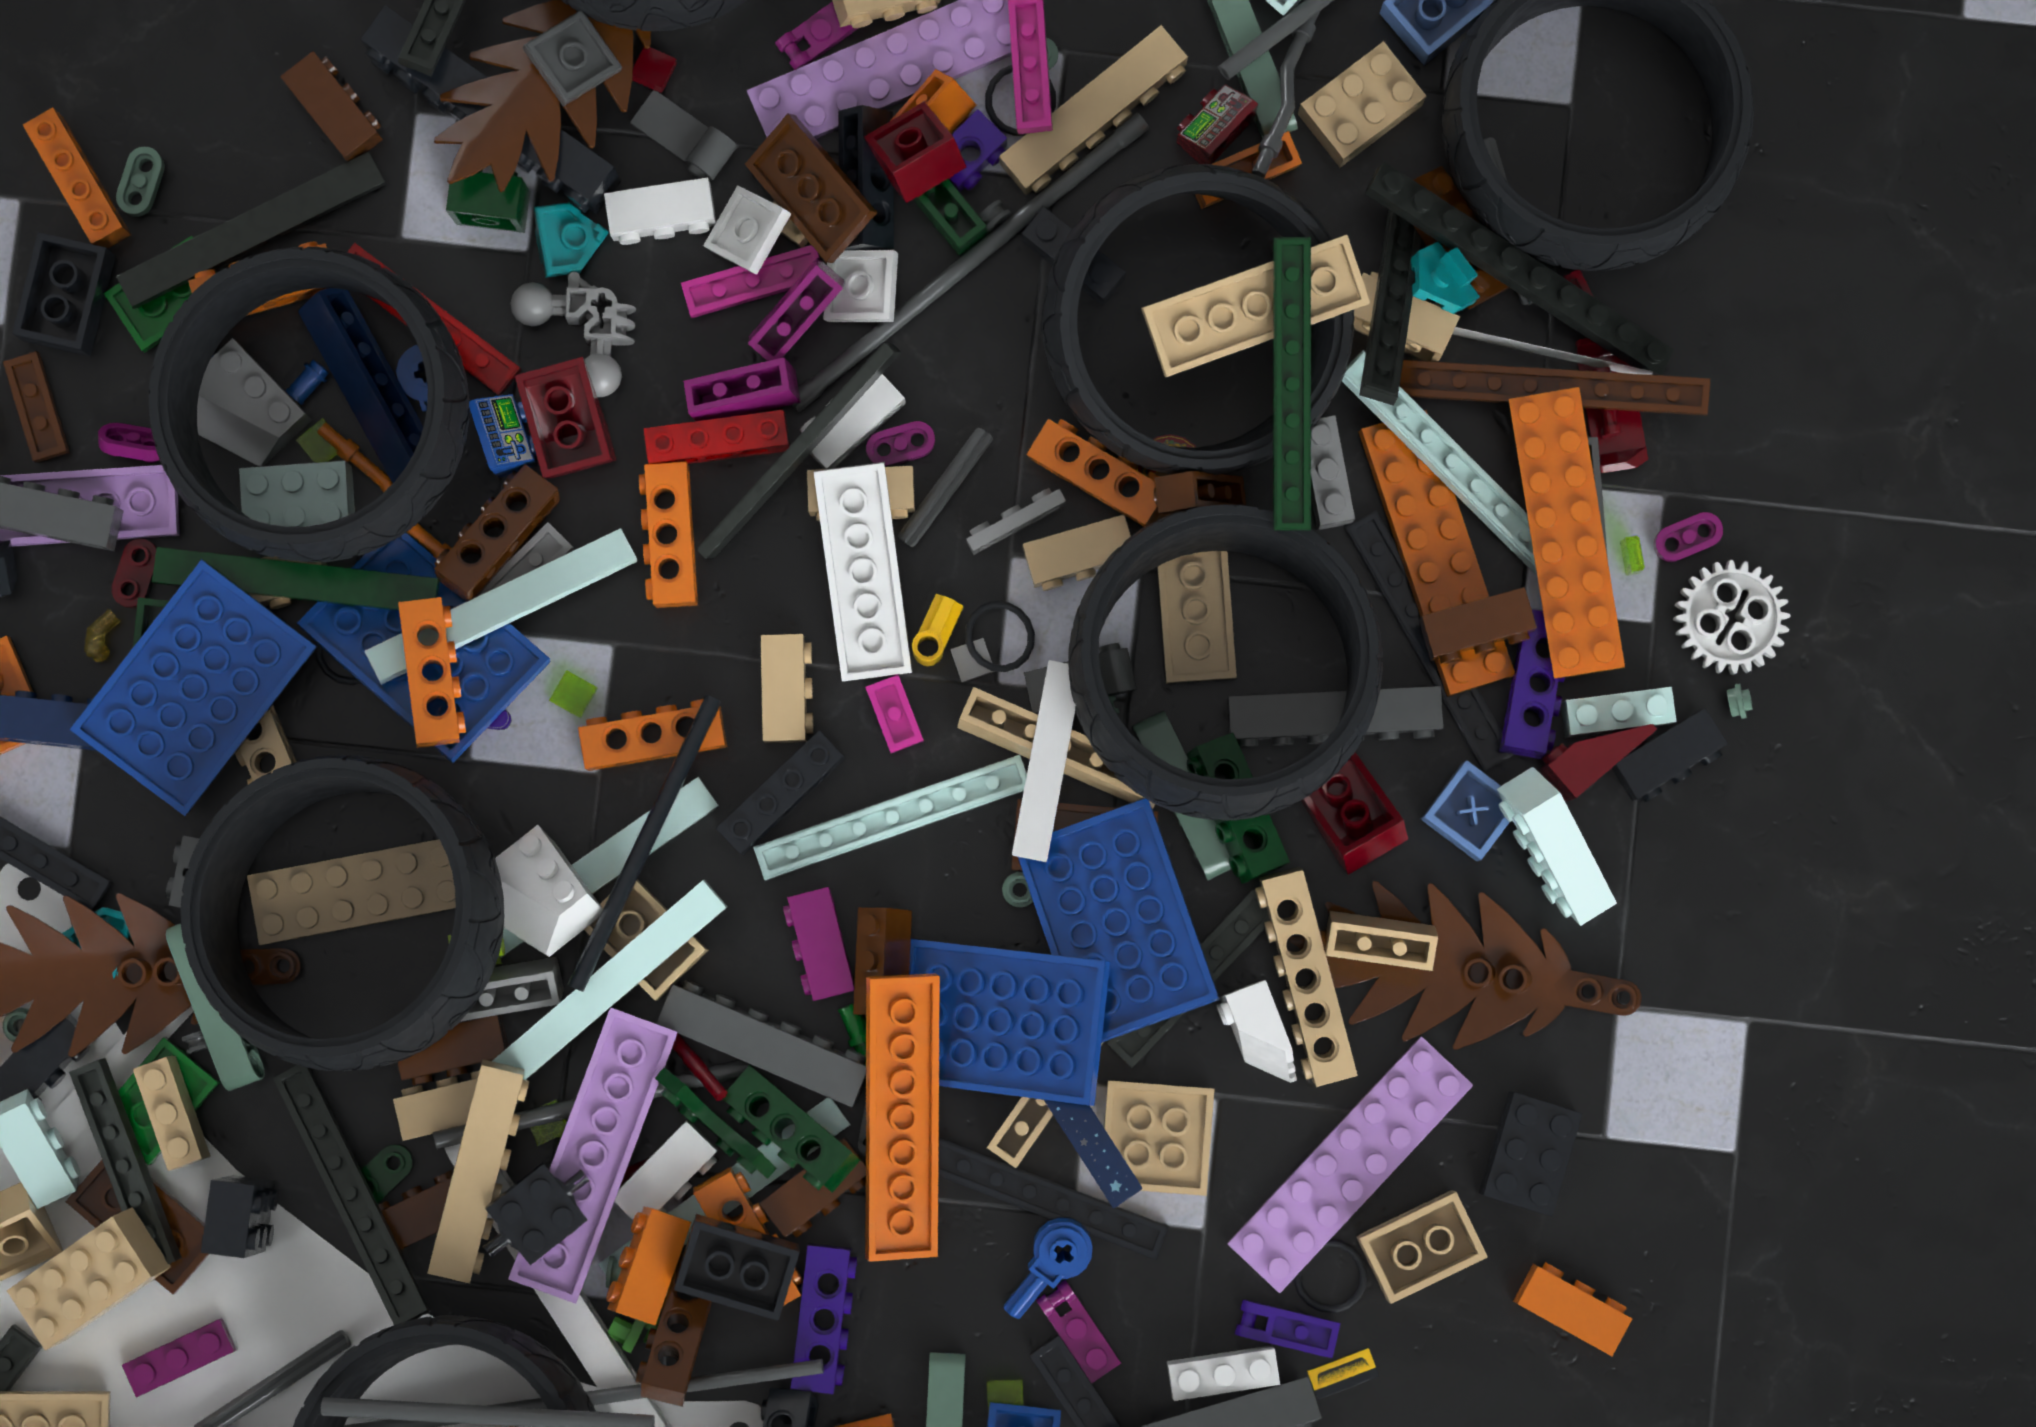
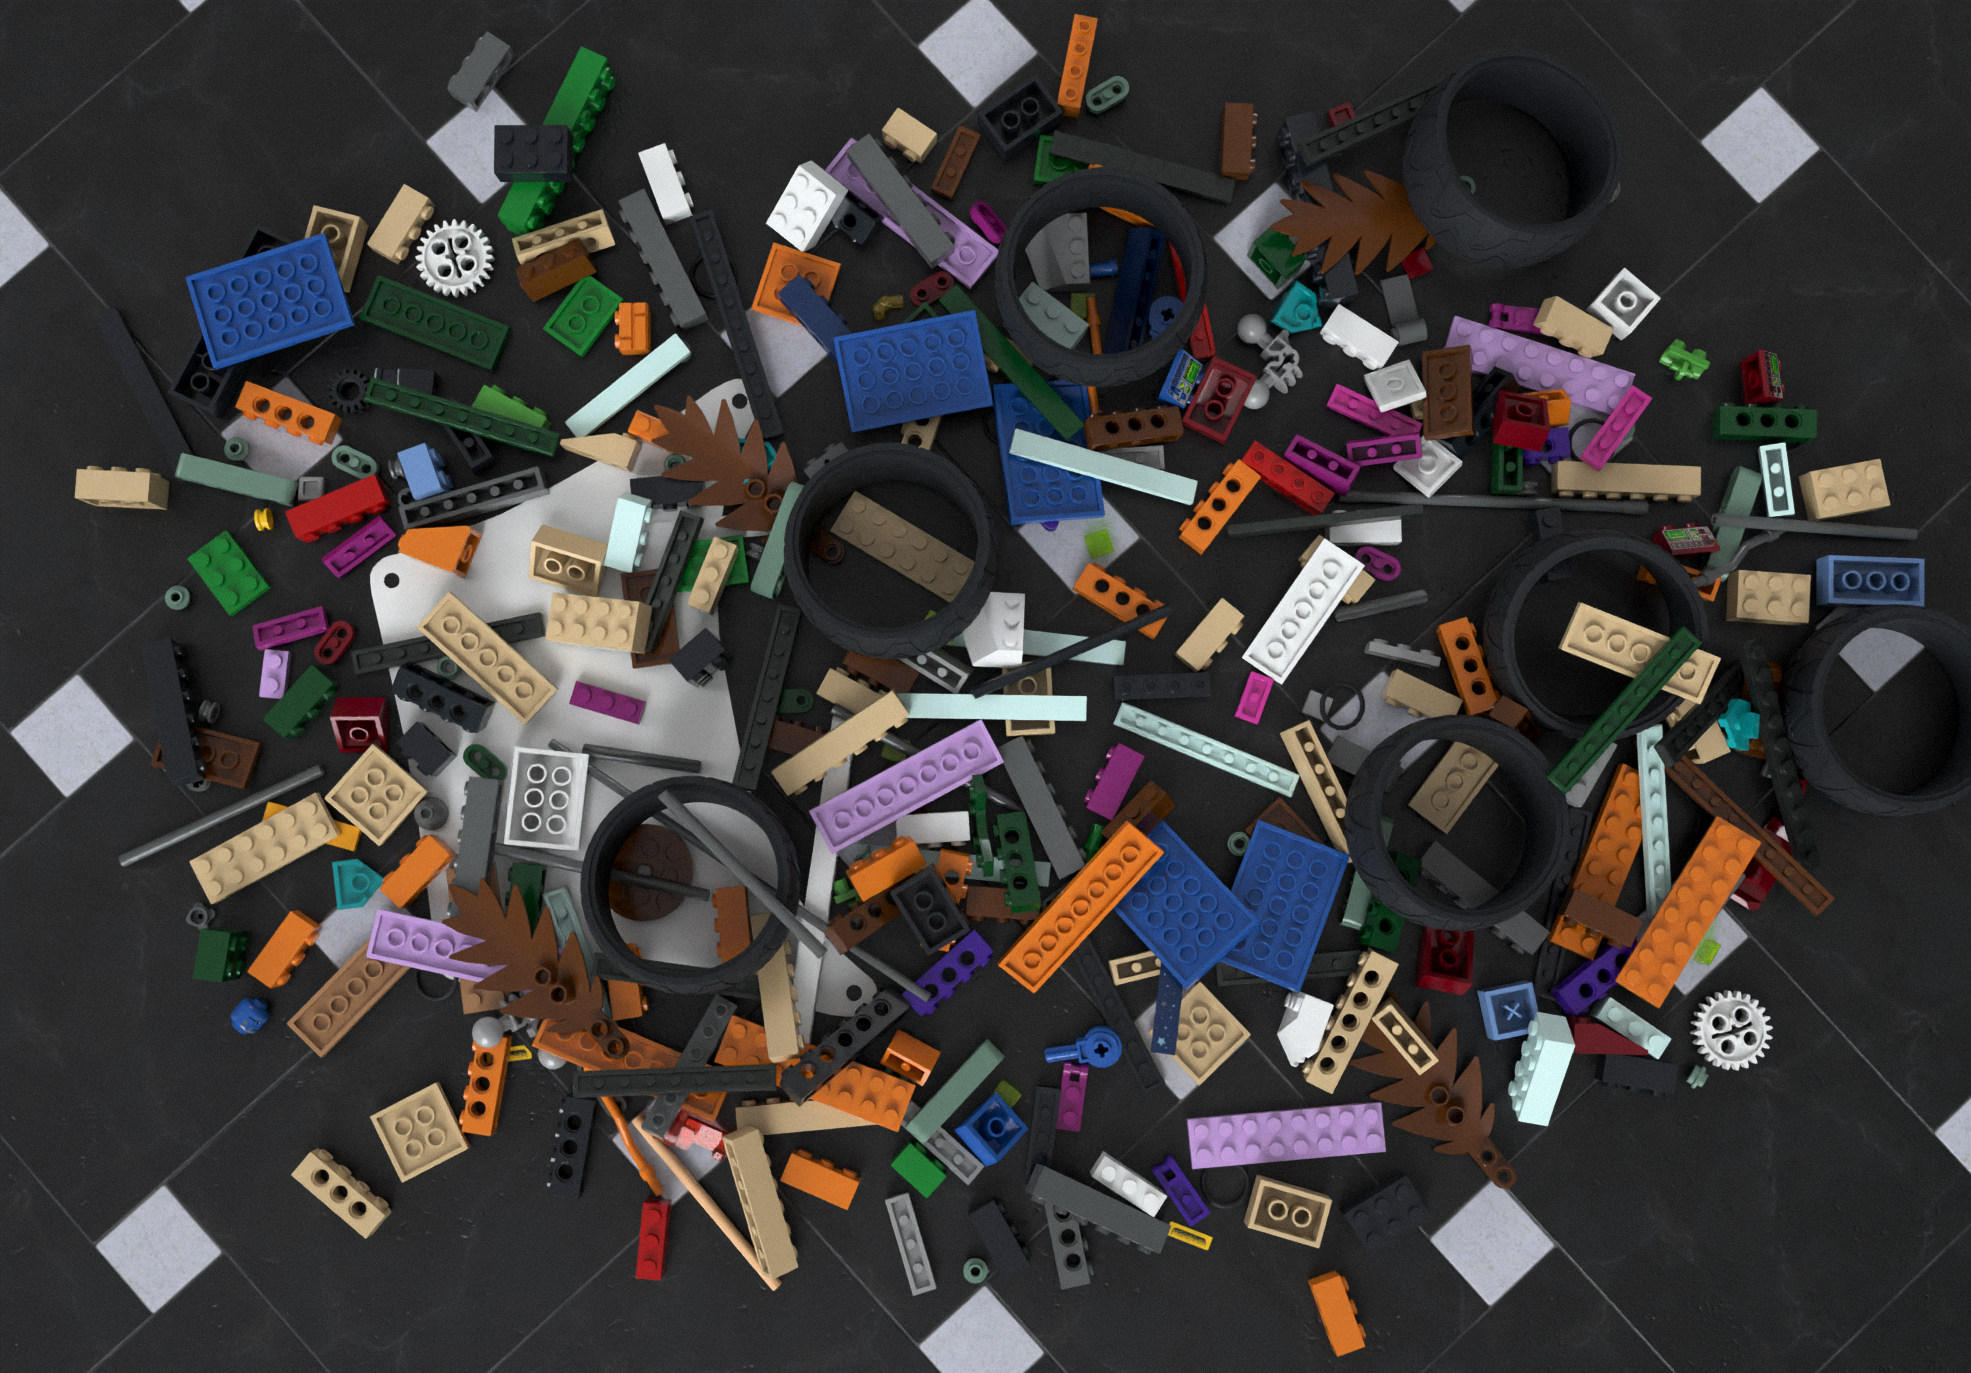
camera: 35 degrees right, 0 degrees up
(414, 618) = (1058, 434): orange brick -> none
(536, 1213) = (852, 791): black plate -> none
(572, 57) = (1386, 220): dark grey tile -> none
(699, 1068) = (997, 790): dark red piece -> none
(937, 627) = (1313, 673): yellow piece -> none
(1046, 765) = (1313, 792): white sticker -> none
(1548, 351) = (1753, 806): white sticker -> none
(1687, 537) = (1743, 967): magenta plate -> none

